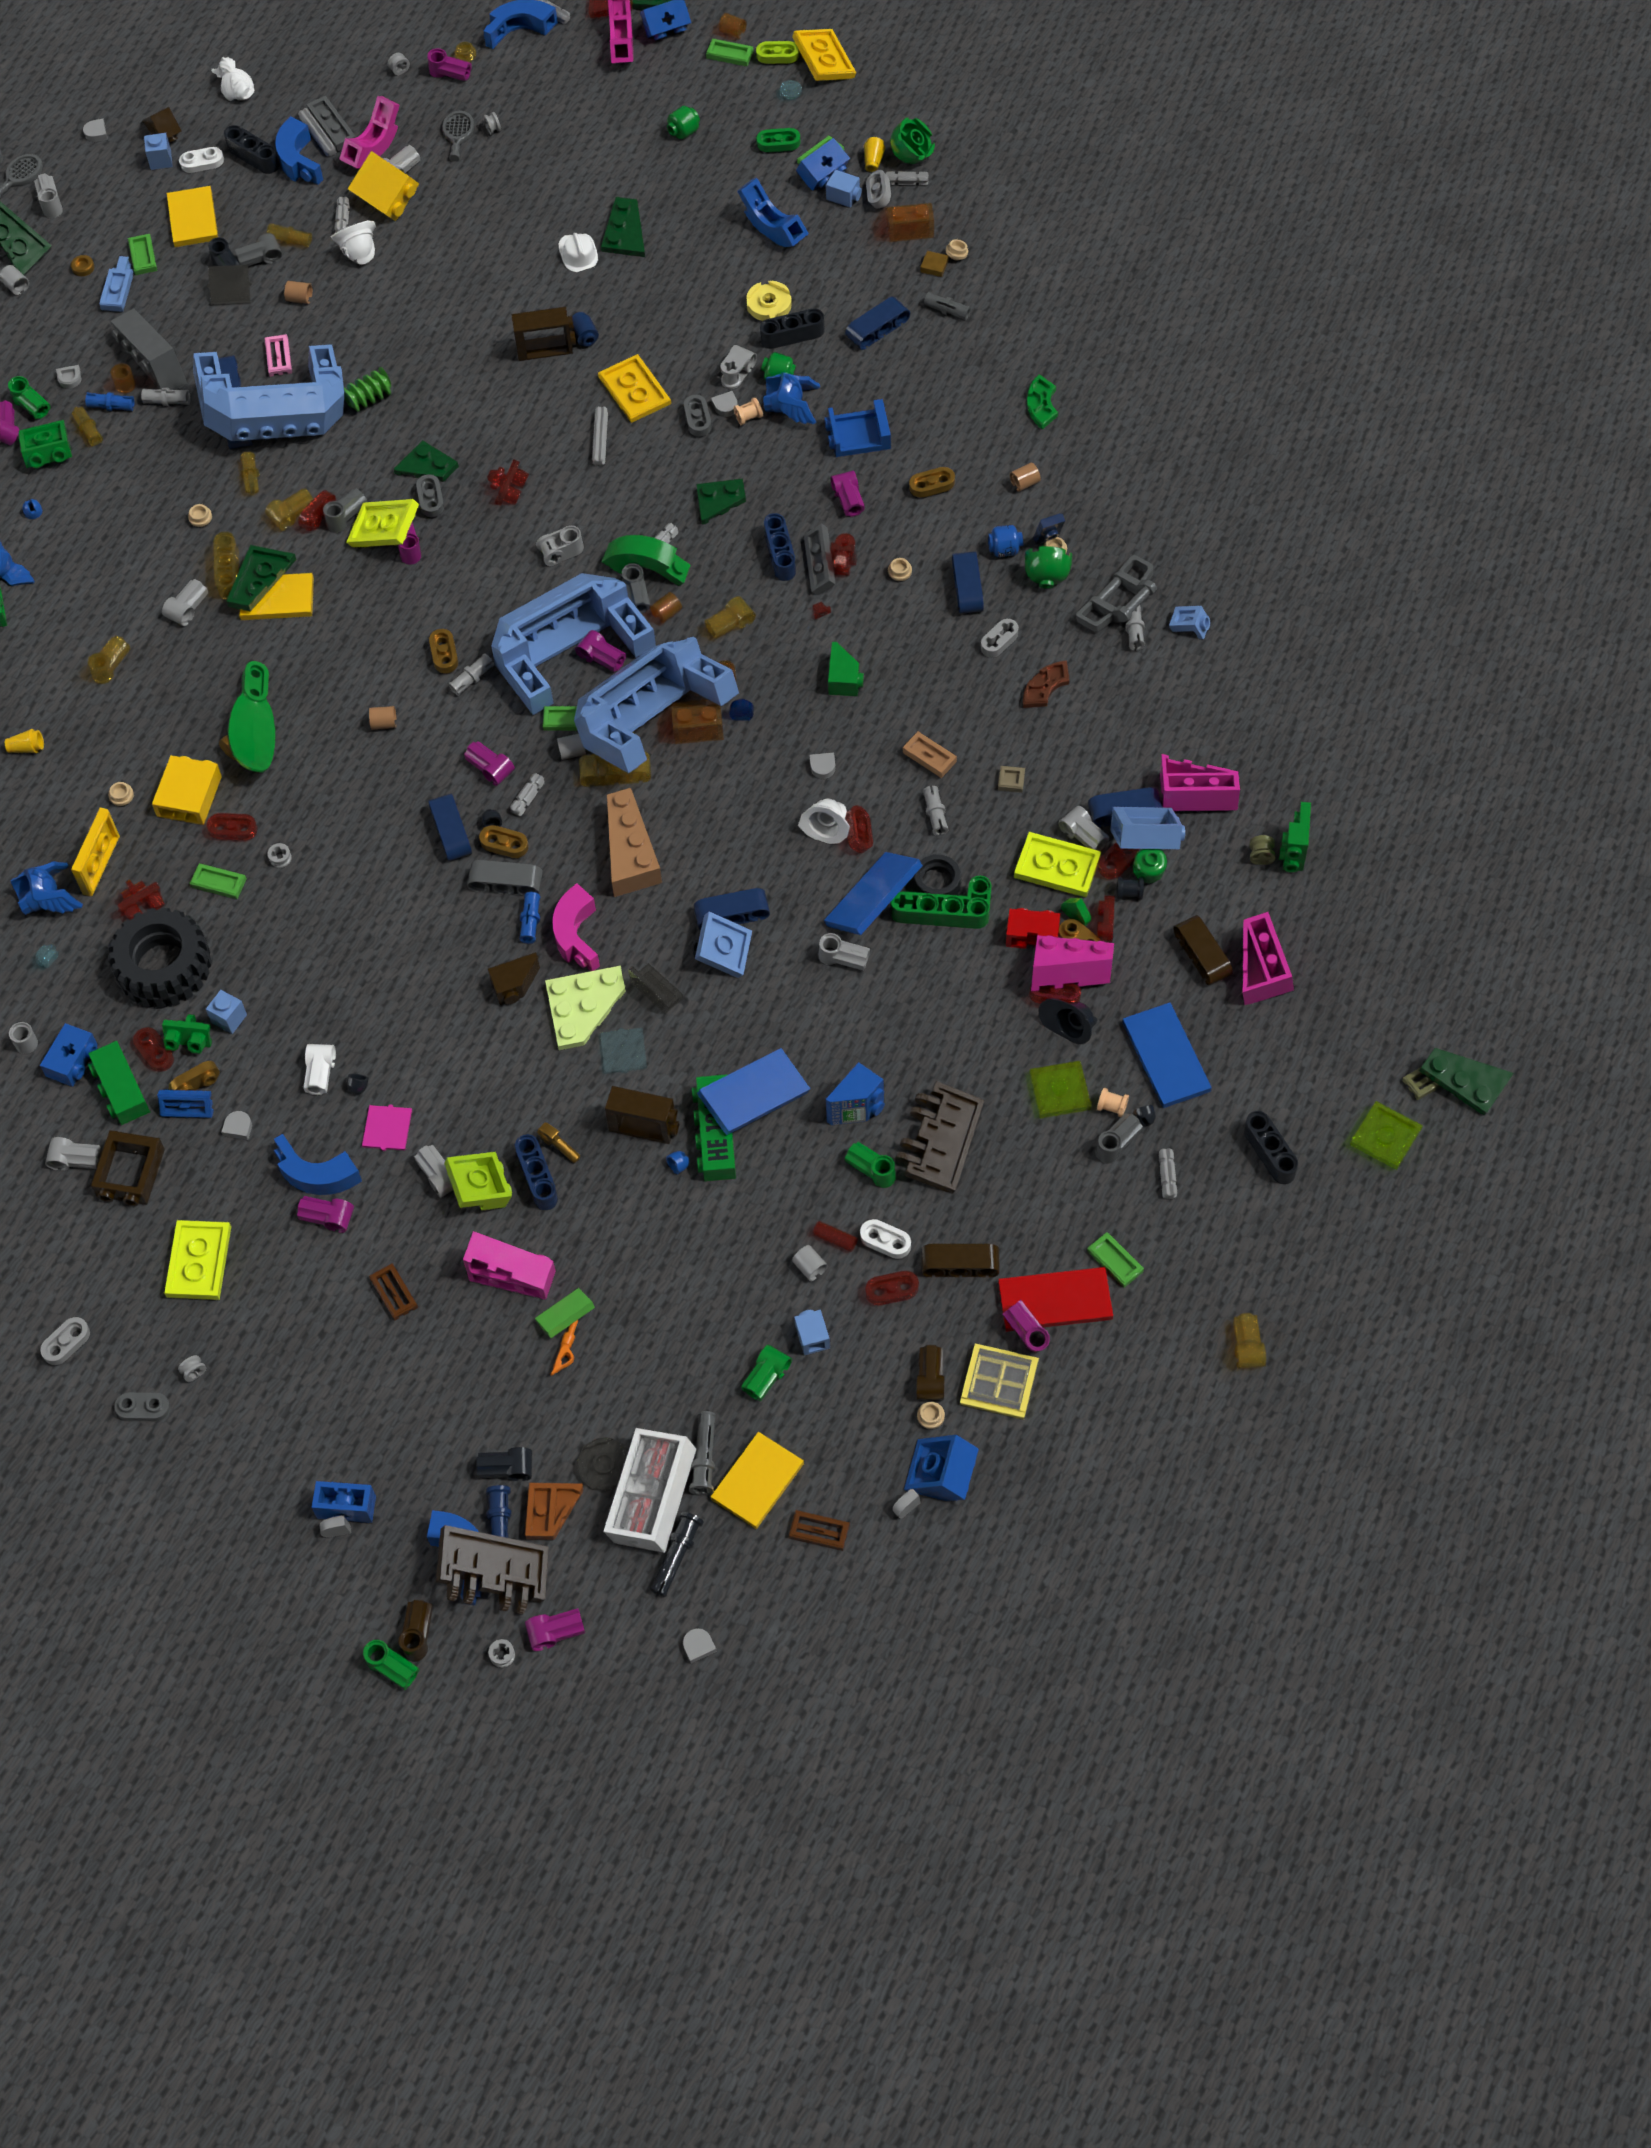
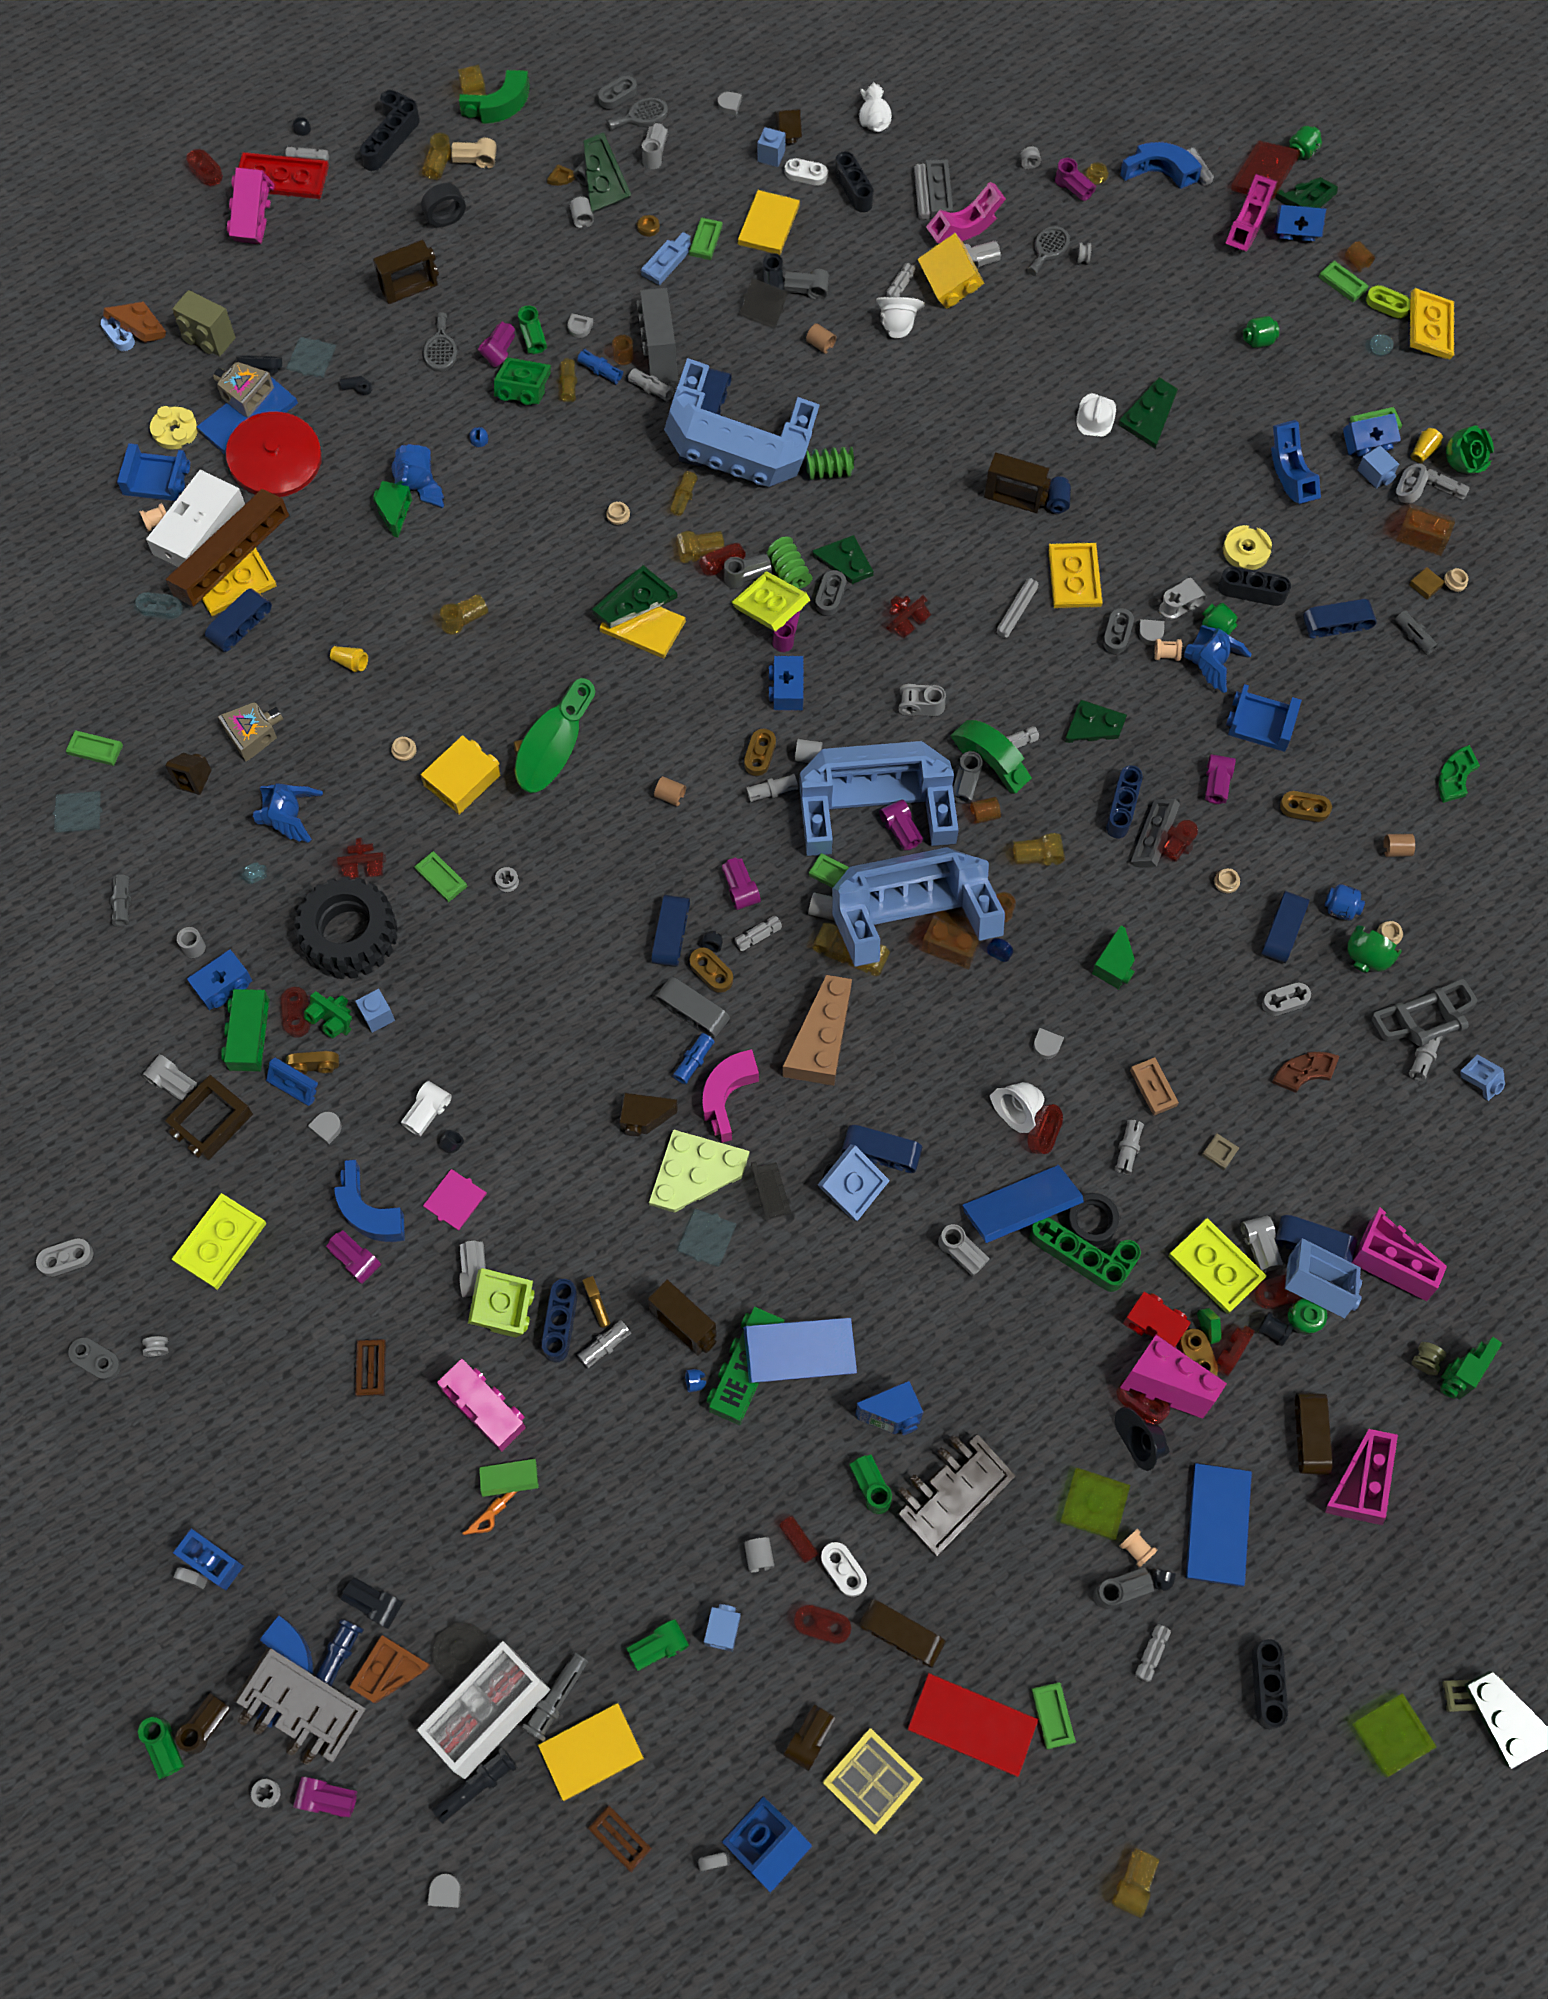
camera: 25 degrees right, 5 degrees up
(95, 852) = (346, 796): yellow tile -> none
(183, 606) = (554, 594): light grey piece -> none
(225, 562) = (614, 564): clear yellow beam -> none
(232, 826) = (481, 831): clear red plate -> none
(279, 369) = (766, 405): bright pink tile -> none
(289, 142) = (891, 190): blue arch -> none
(290, 234) = (844, 279): clear yellow axle -> none
(378, 486) = (788, 563): none -> bright green piece
(435, 583) = (787, 670): none -> blue brick
(484, 630) = (807, 750): none -> light grey beam
(584, 1172) = (604, 1344): none -> light grey pin
(778, 140) = (1342, 389): green plate -> none
(821, 610) = (1130, 884): clear red piece -> none
(931, 1415) = (788, 1779): tan plate -> none
(1024, 1324) = (926, 1742): magenta piece -> none
(1049, 528) = (1393, 913): dark blue plate -> none

